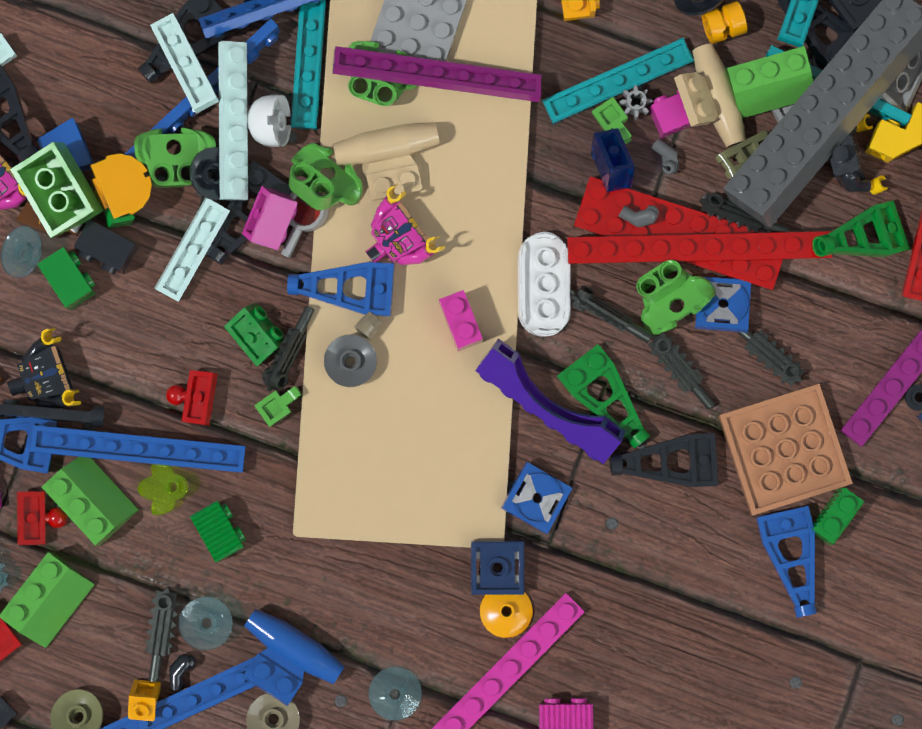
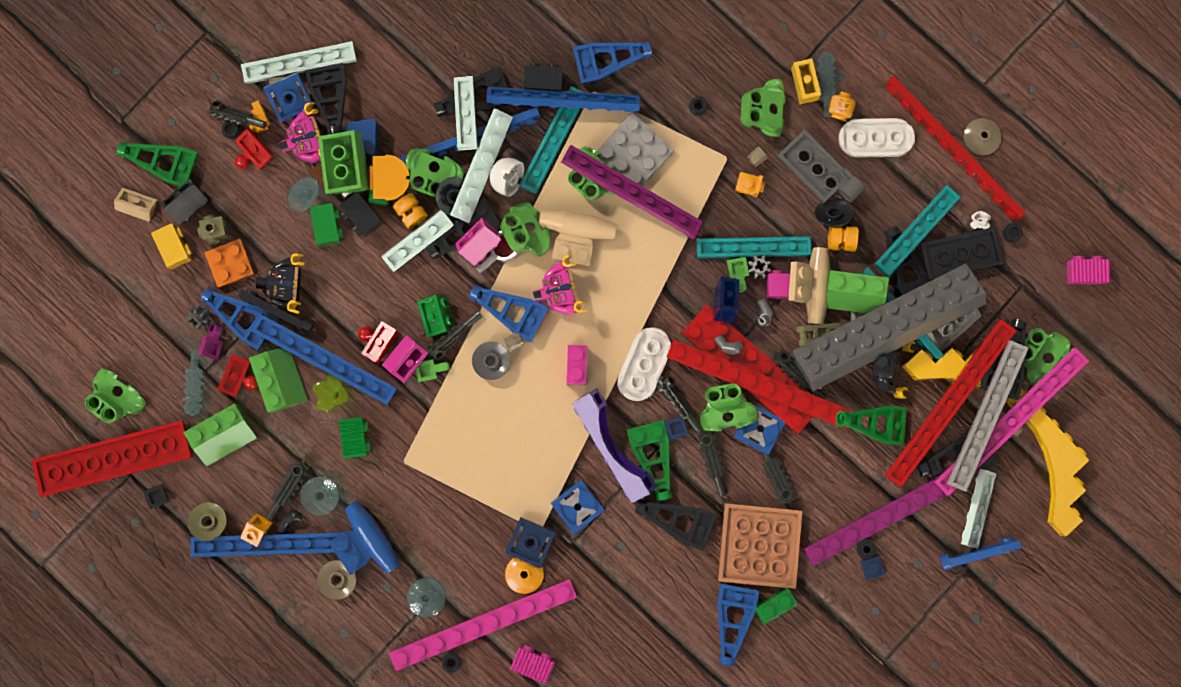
camera: 25 degrees right, 0 degrees up
(159, 210) = (405, 206): none -> light orange wheel
(240, 404) = (405, 359): none -> dark pink brick
(618, 347) = (676, 428): none -> dark blue plate

